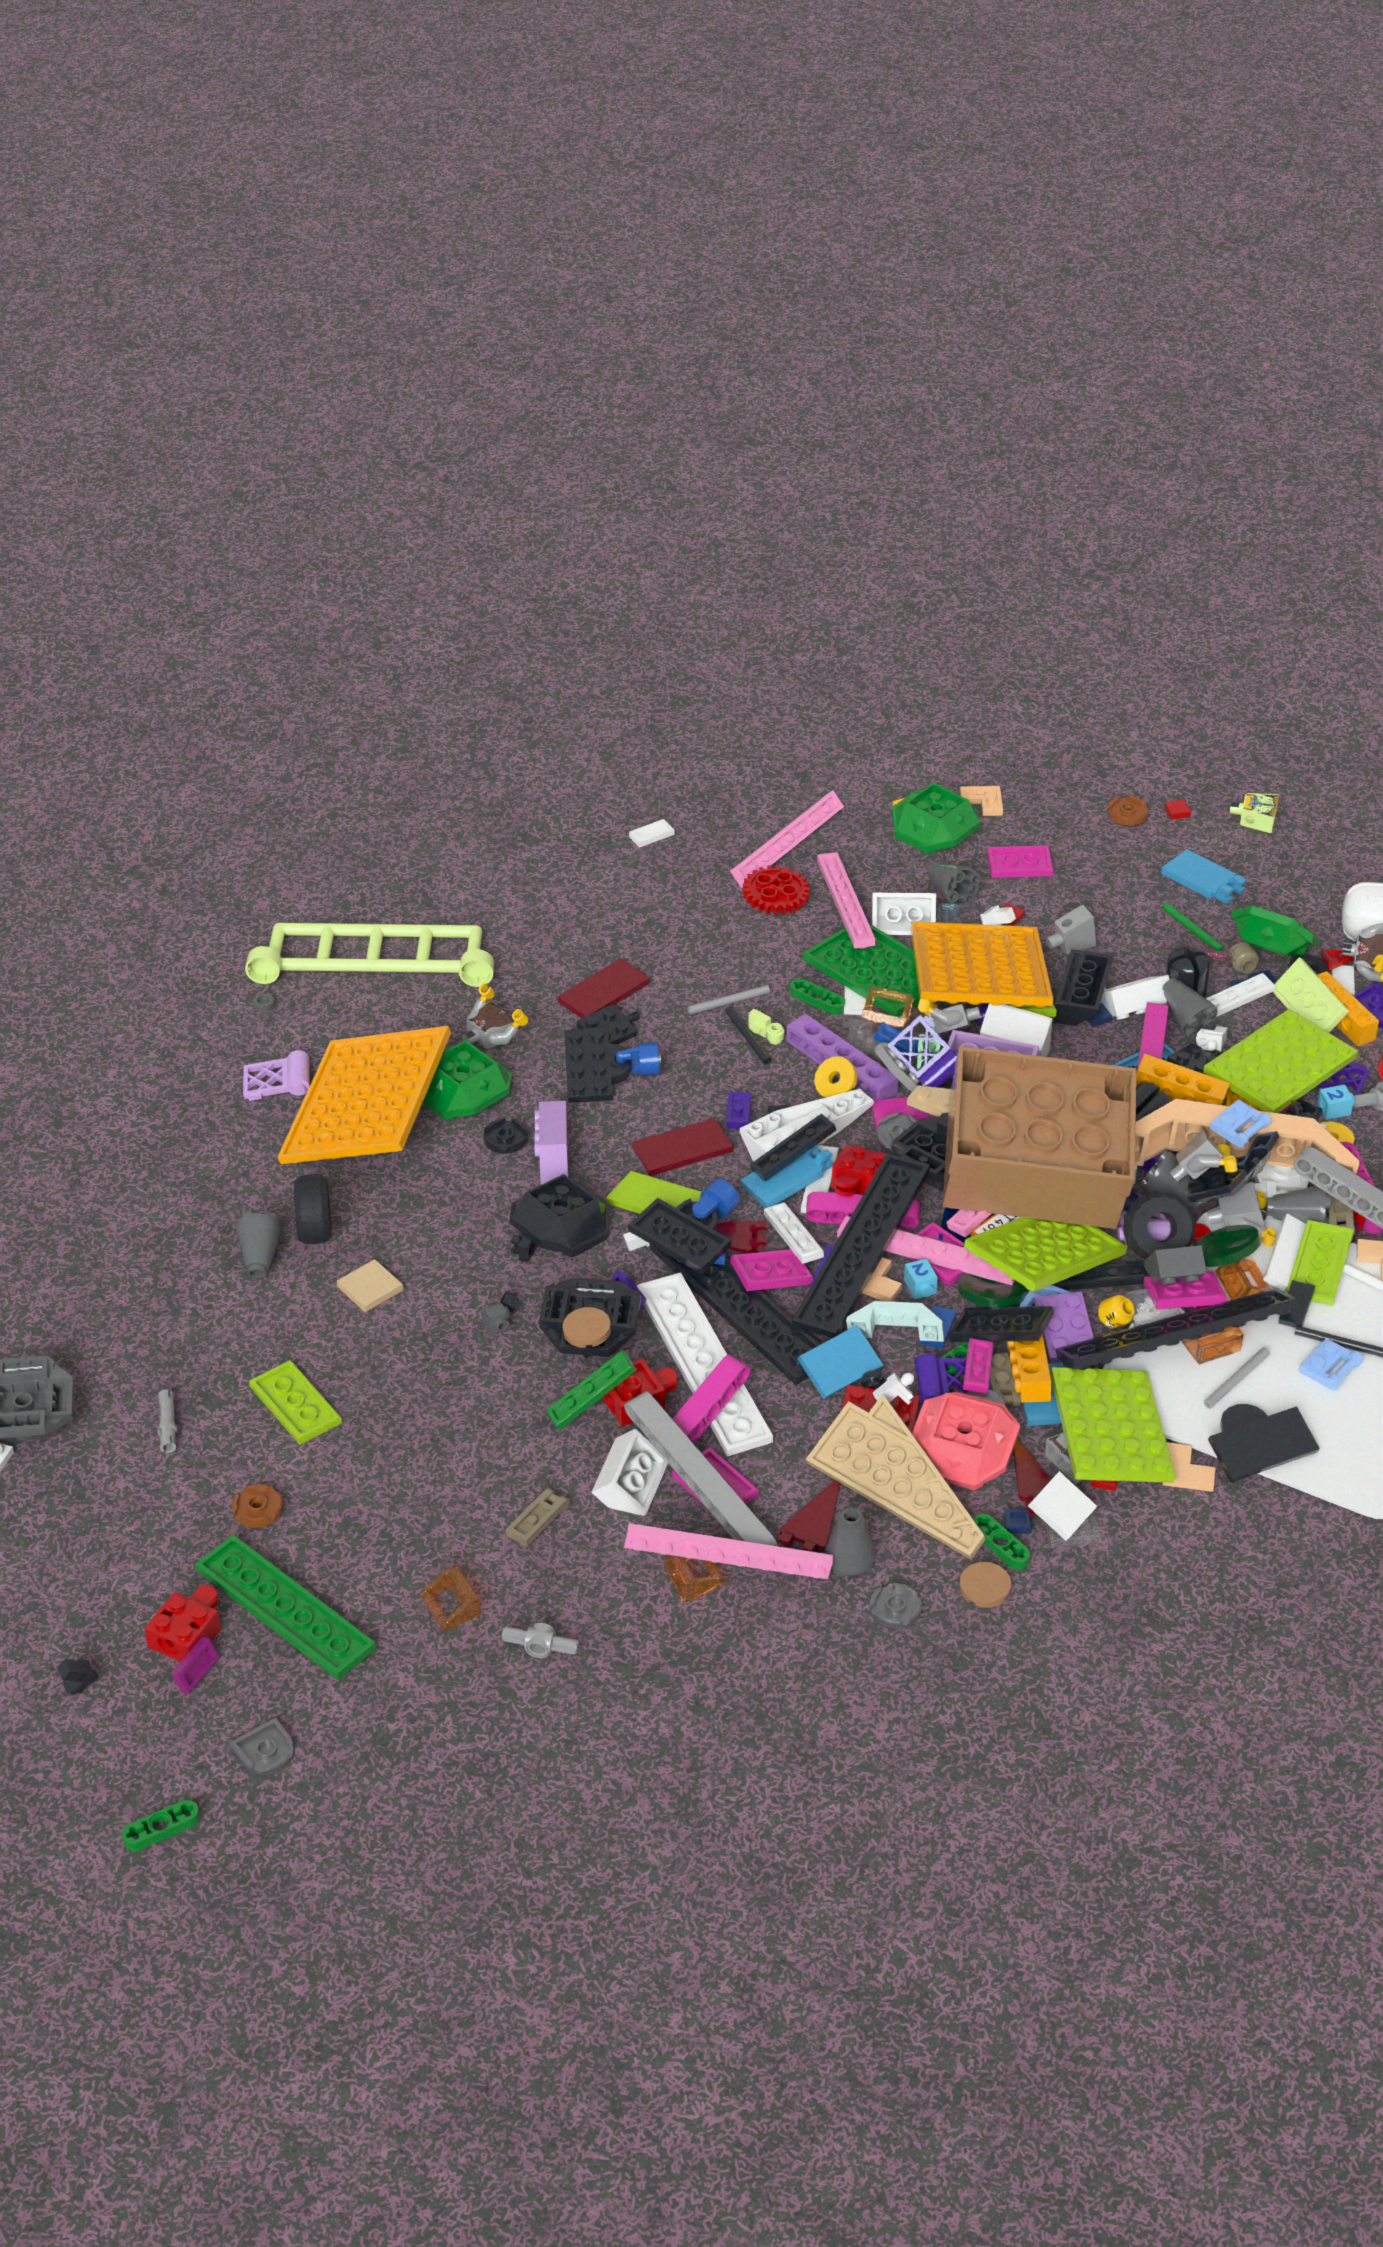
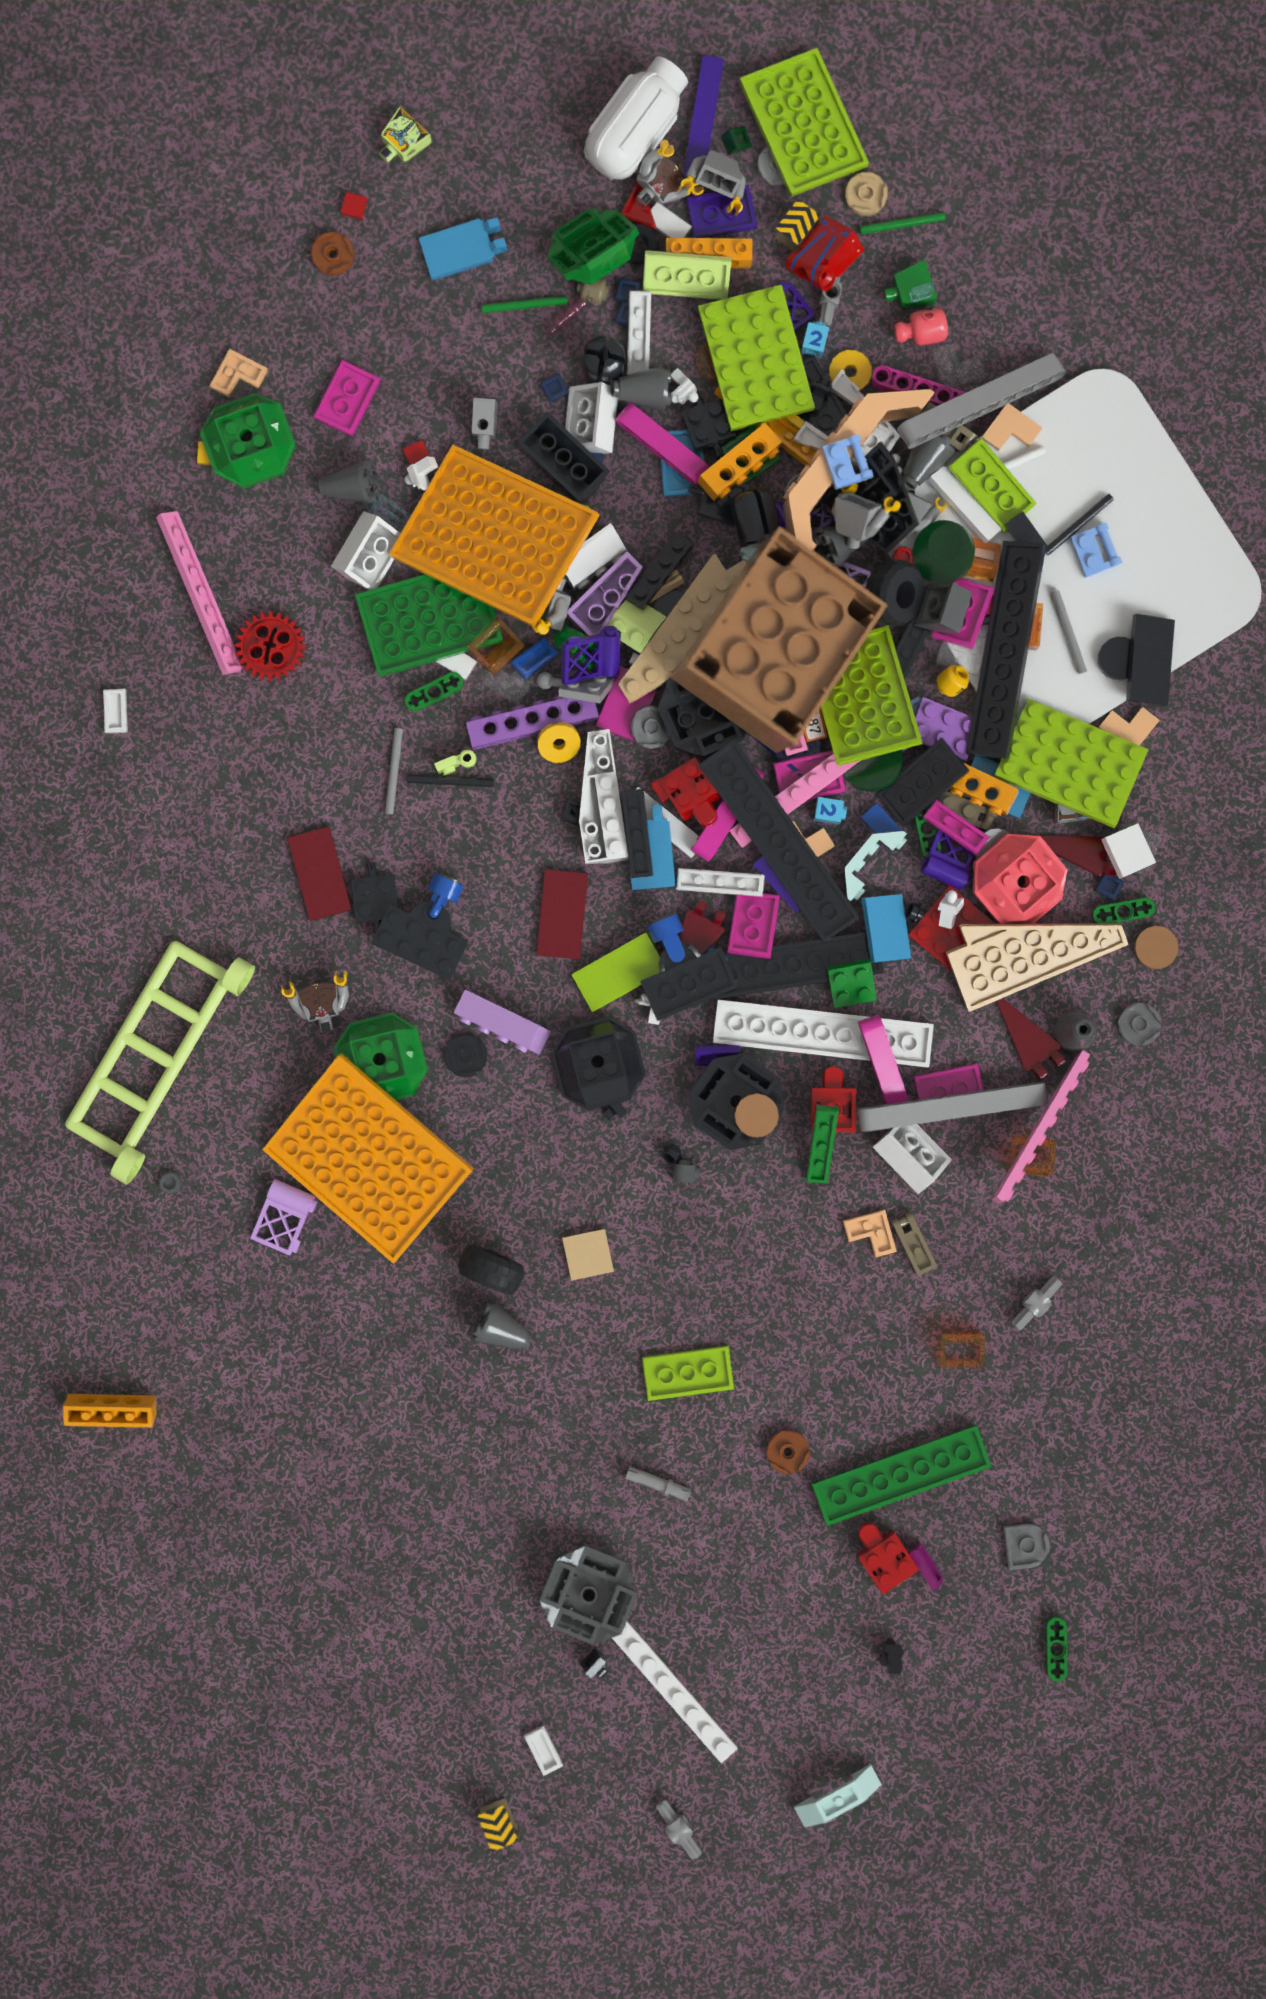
camera: 60 degrees left, 45 degrees up
(31, 1032) = (109, 1410): none -> light orange brick
(532, 1483) = (874, 1226): none -> light nougat tile
(738, 1109) = (546, 844): dark purple plate -> none
(768, 1357) = (851, 983): none -> green plate
(846, 900) = (326, 594): bright pink plate -> none
(1139, 969) = (554, 388): none -> dark blue tile

